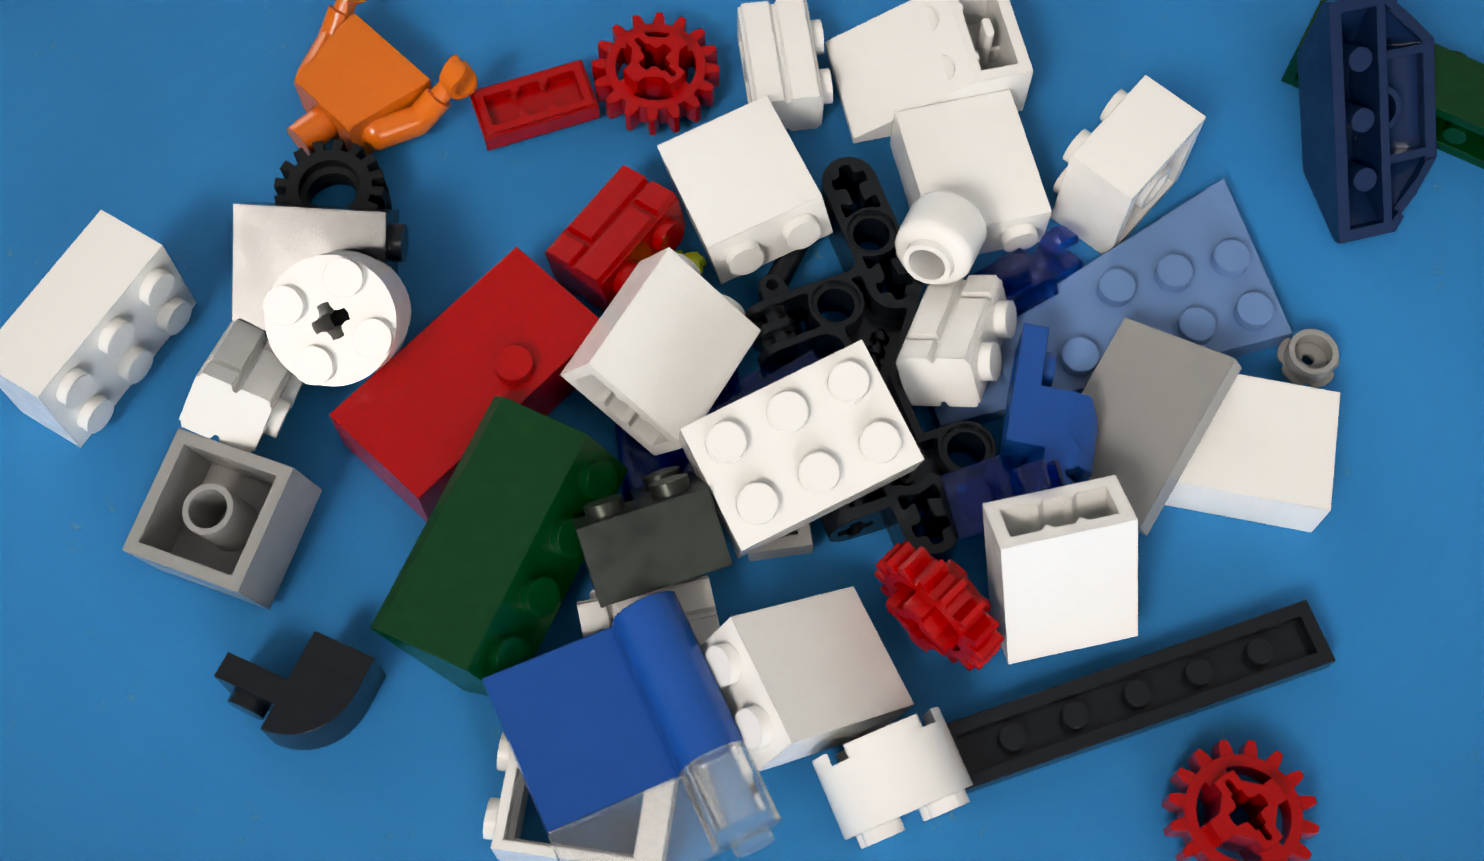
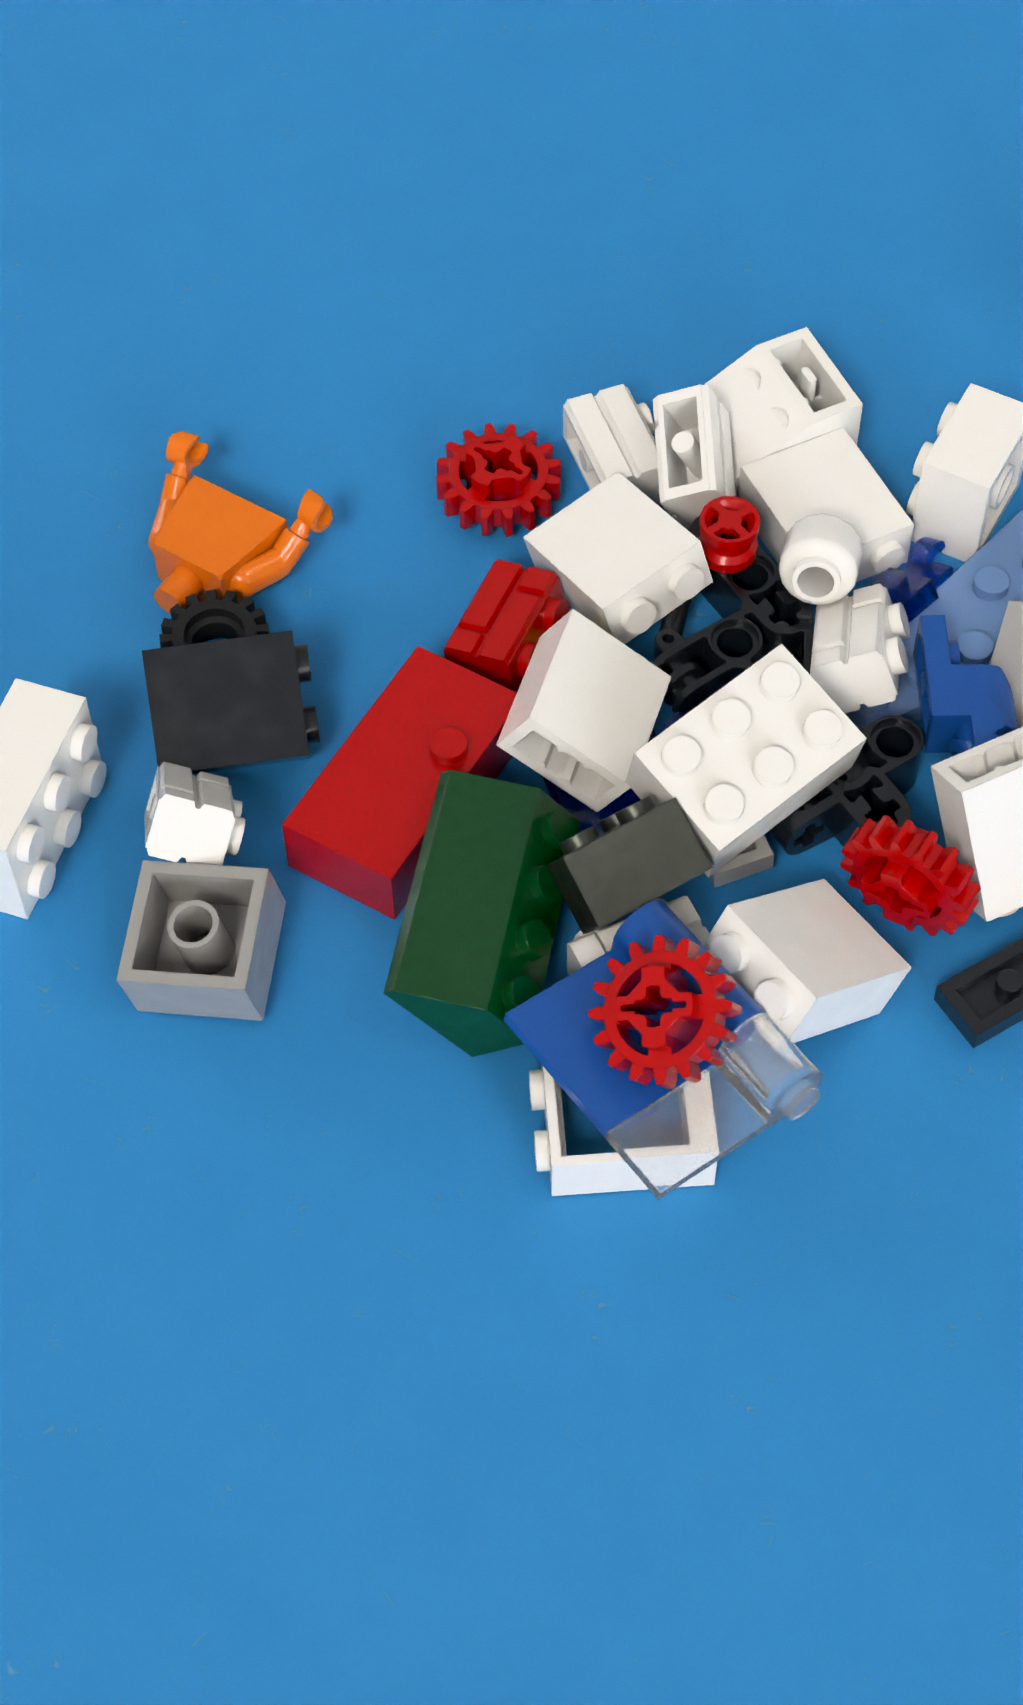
camera: 10 degrees left, 10 degrees down
(301, 325) = (278, 696): white brick -> none
(316, 703) = (330, 1093): black brick -> none
(534, 105) = (387, 529): red plate -> none
(613, 751) = (645, 989): none -> red gear
(848, 93) = (692, 451): none -> white brick
(862, 174) = (729, 533): none -> red wheel
(892, 775) = (910, 1030): white brick -> none
(994, 481) = (911, 764): clear blue plate -> none

